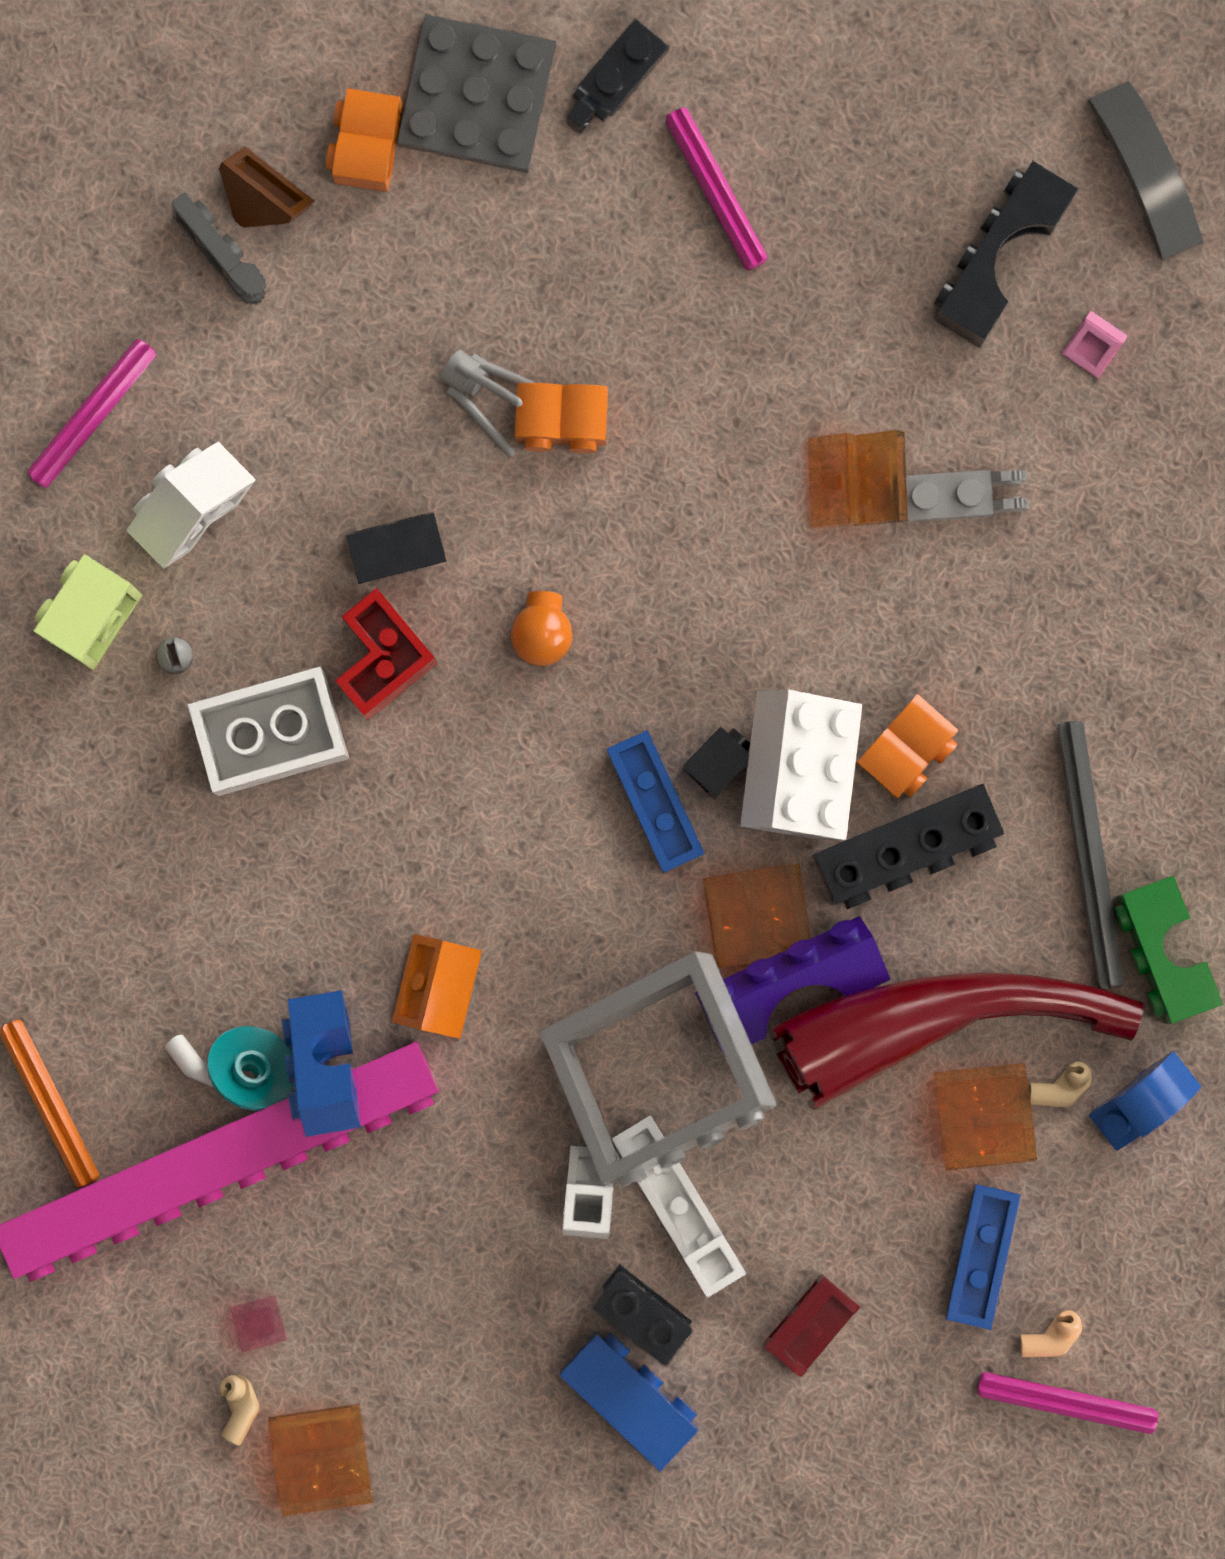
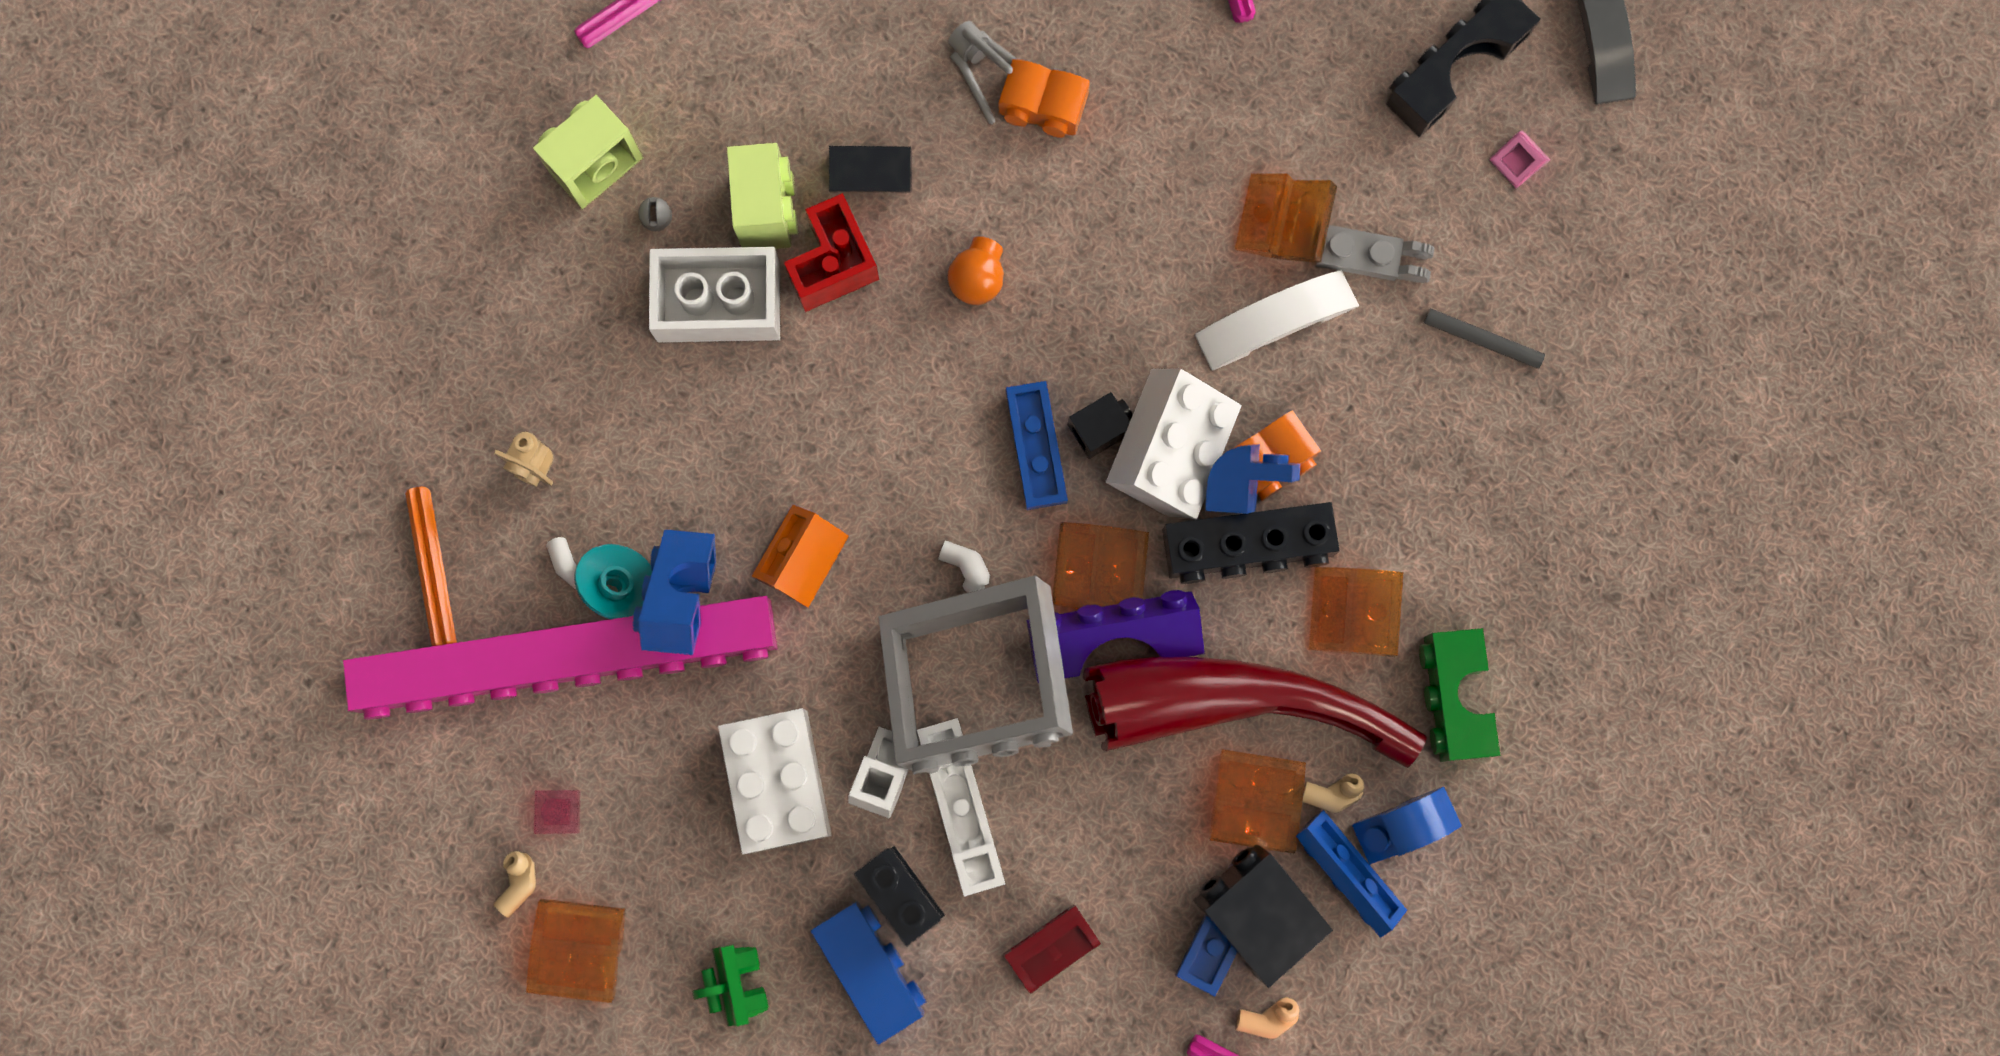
camera: 15 degrees right, 5 degrees down
(123, 964) = (528, 459): none -> tan hinge
(187, 502) = (700, 82): white brick -> none
(287, 613) = (761, 196): none -> yellowish green brick
(478, 1232) = (774, 781): none -> white brick
(503, 1467) = (738, 1004): none -> green hips
(620, 948) = (970, 563): none -> white arm
(875, 594) = (1276, 318): none -> white slope
(876, 784) = (1236, 475): none -> blue brick
(1018, 1233) = (1262, 914): none -> black panel
(1037, 889) = (1356, 611): none -> clear orange slope
(1090, 855) = (1413, 565): dark grey axle -> none
(1100, 1165) = (1351, 874): none -> blue plate
(1103, 556) = (1484, 338): none -> dark grey bar

